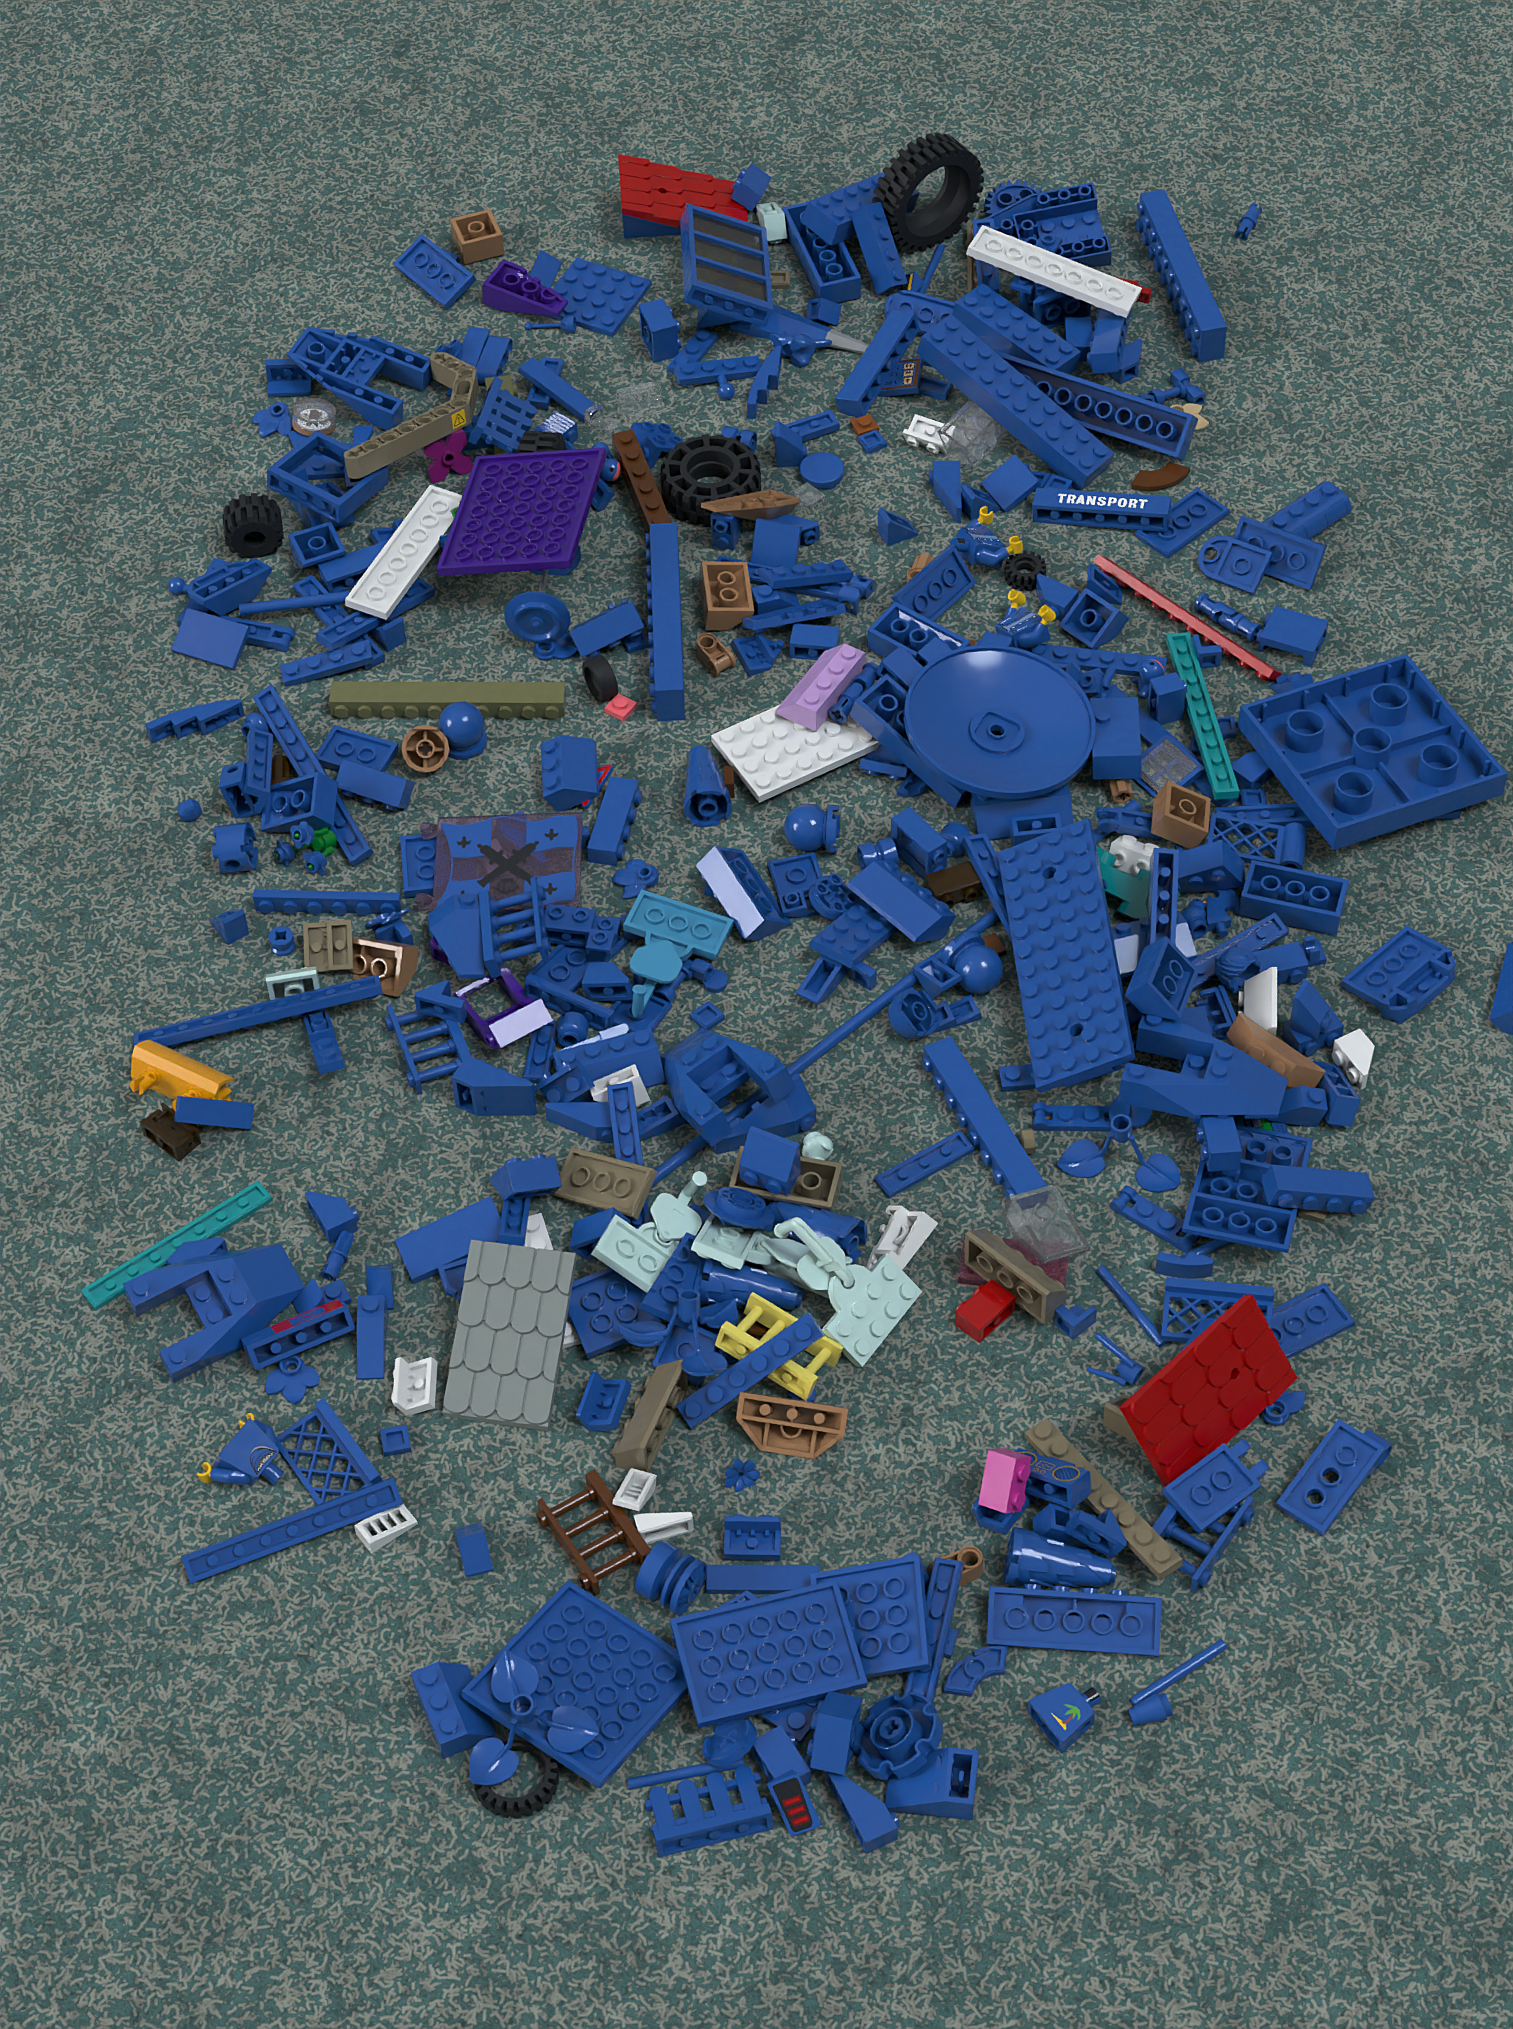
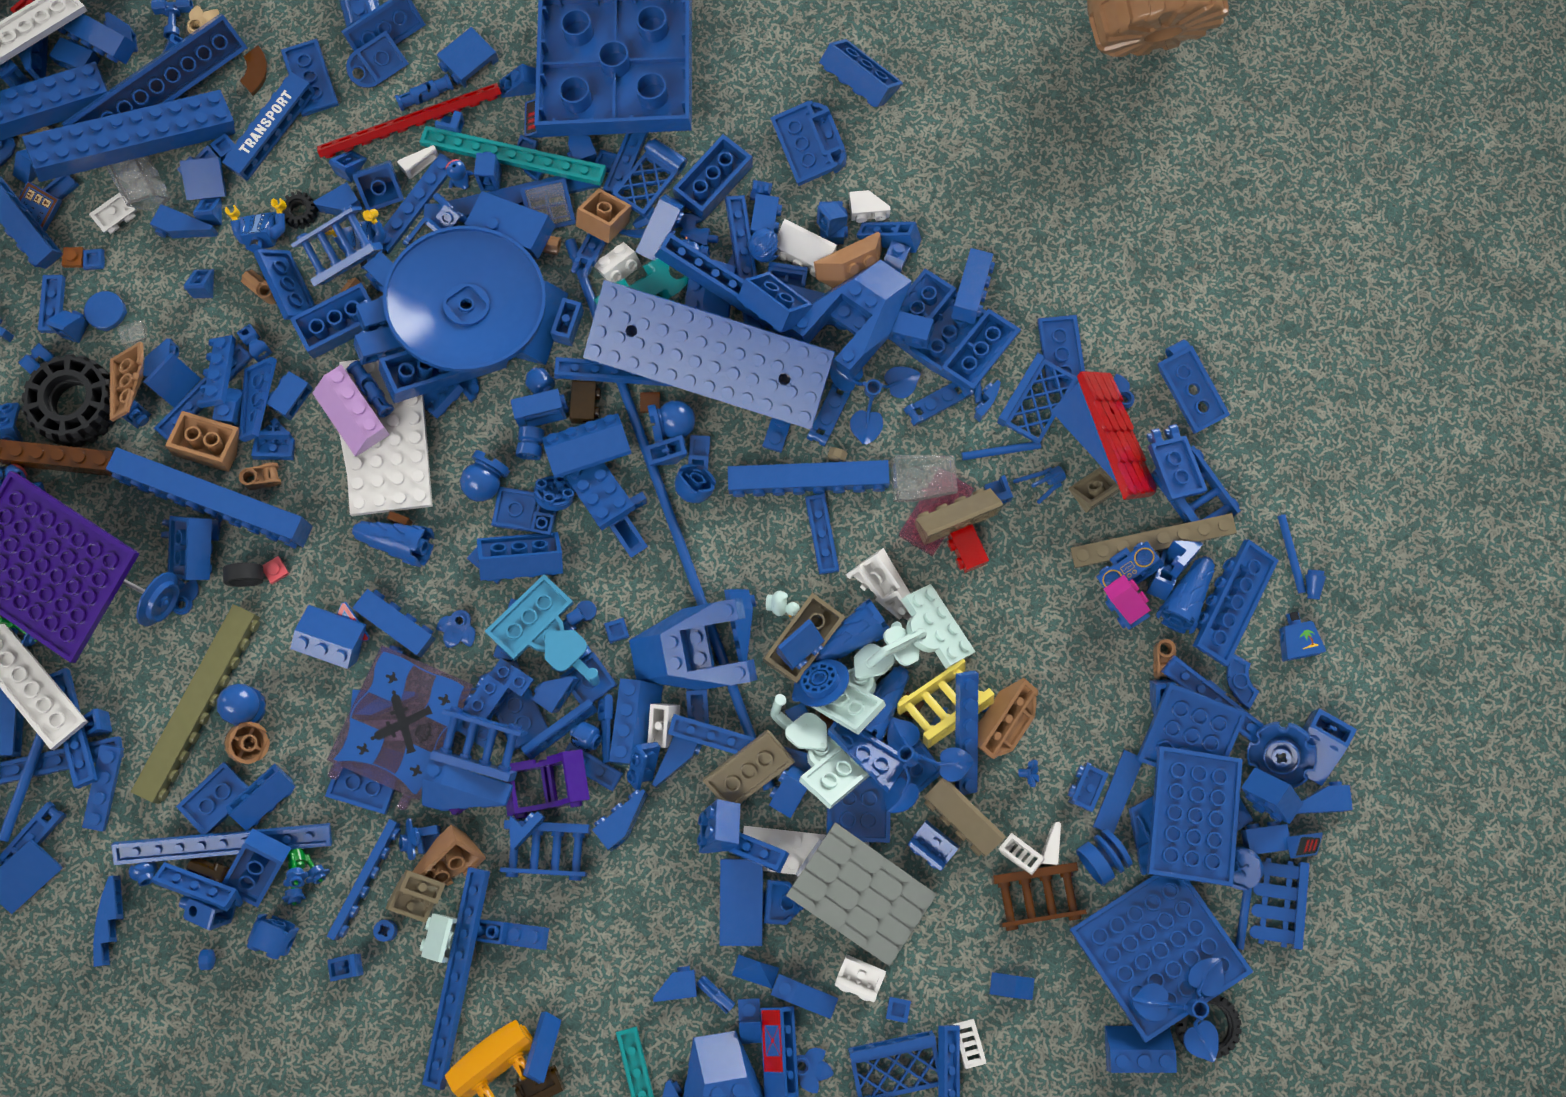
camera: 70 degrees left, 25 degrees up
(980, 620) = (352, 256): none -> blue fence
(1139, 641) = (418, 161): none -> white slope

